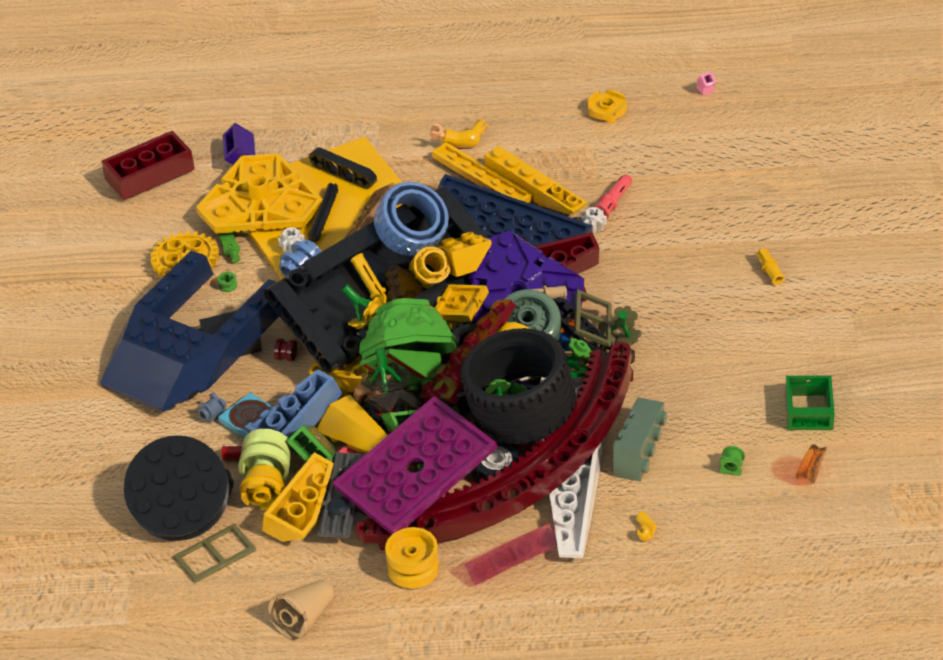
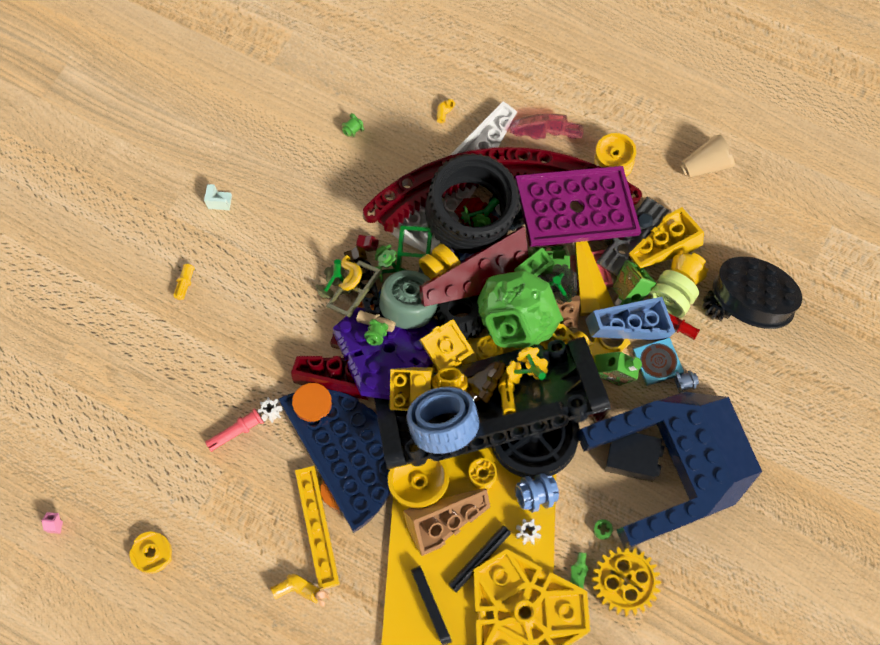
camera: 145 degrees left, 25 degrees up
(222, 562) = (742, 243): olive window -> none
(284, 371) = (617, 367): none -> bright green torso
(419, 385) = (536, 263): none -> bright green plate
(534, 277) = (376, 332): none -> bright green brick
(544, 189) = (286, 481): yellow slope -> none
(555, 229) = (312, 402): none -> orange tile
(600, 322) = (354, 275): none -> yellow piece
(638, 439) = (410, 157): sand green wedge -> none
(808, 338) = (217, 199): none -> light aqua panel
(809, 417) = (265, 124): green window -> none
(811, 463) = (308, 89): clear orange piece -> none

